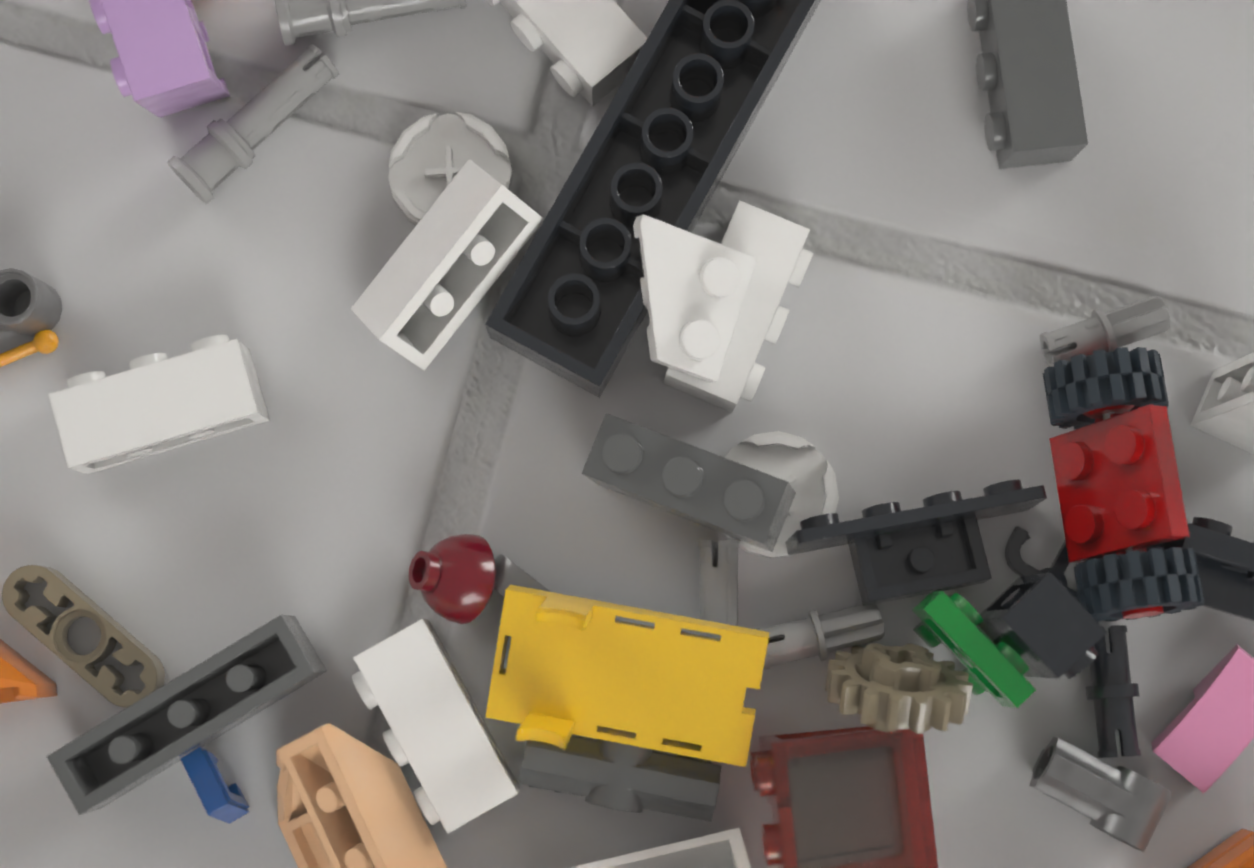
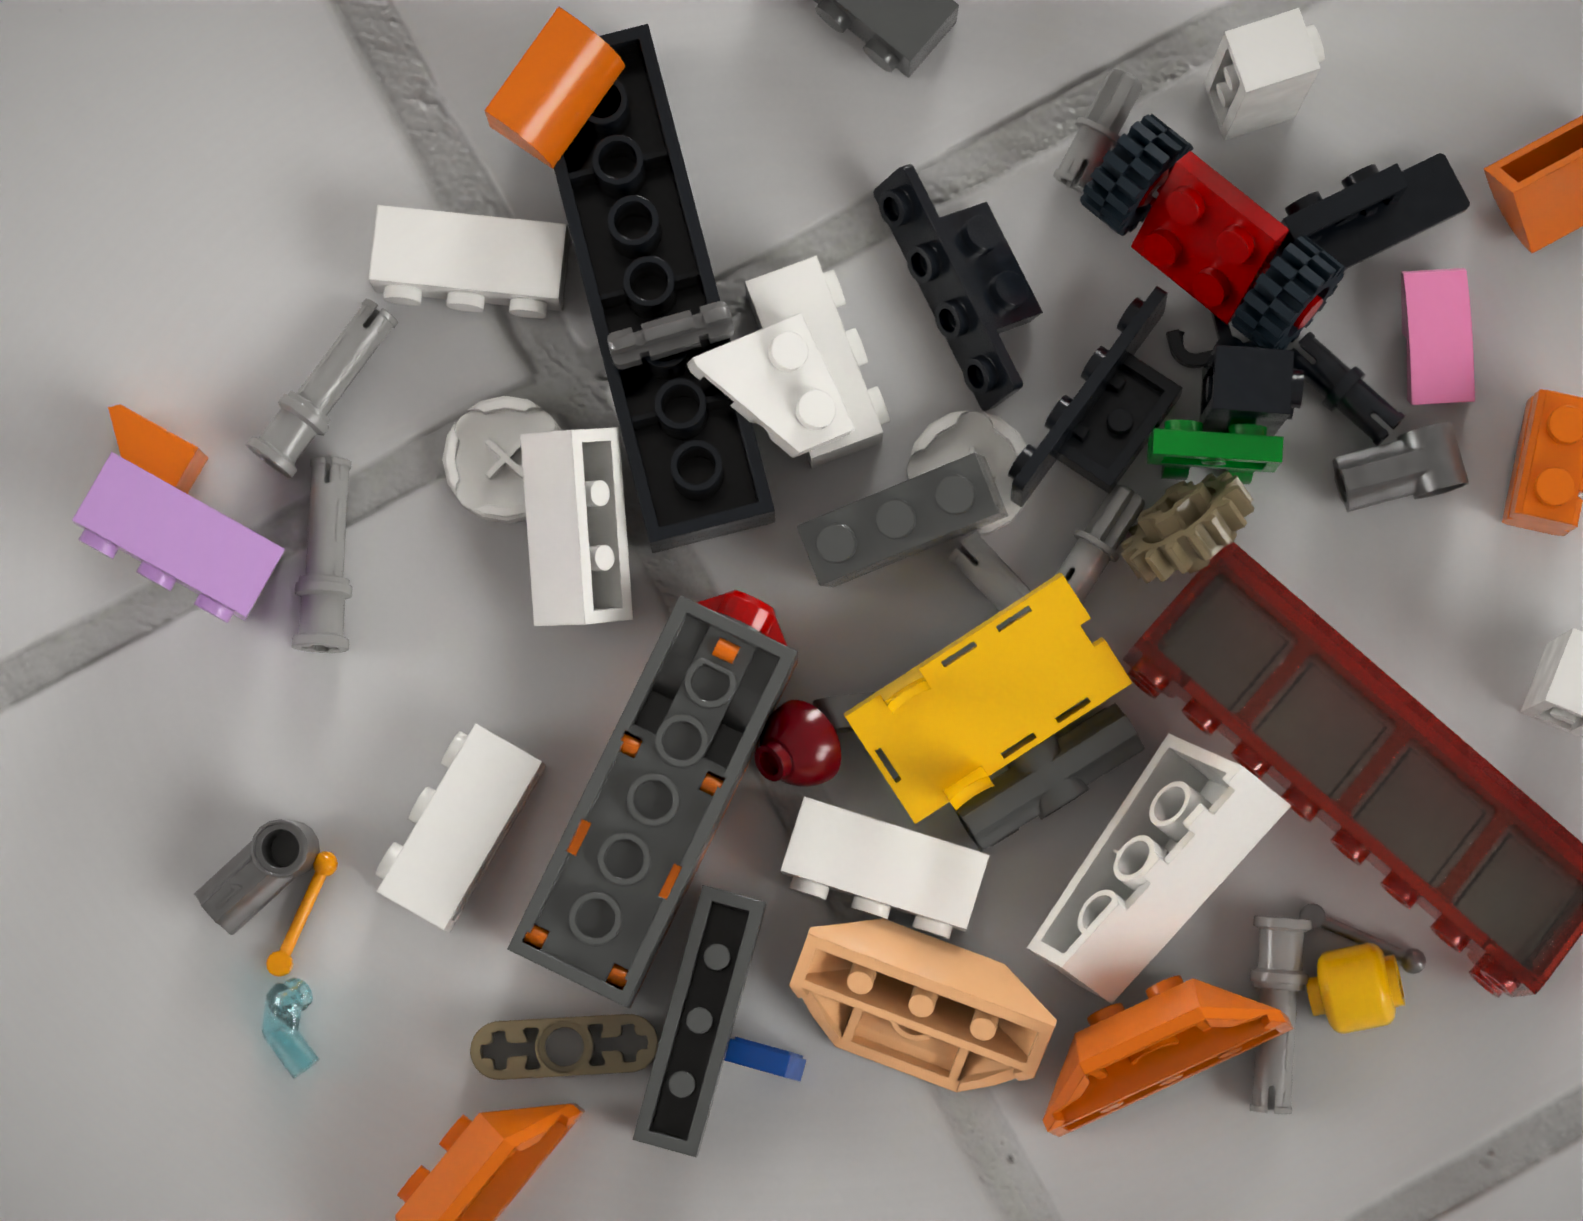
camera: 35 degrees left, 0 degrees up
(309, 518) = (658, 795): none -> dark grey piece
(644, 184) = (670, 335): none -> flat silver axle
(904, 351) = (966, 279): none -> black bracket

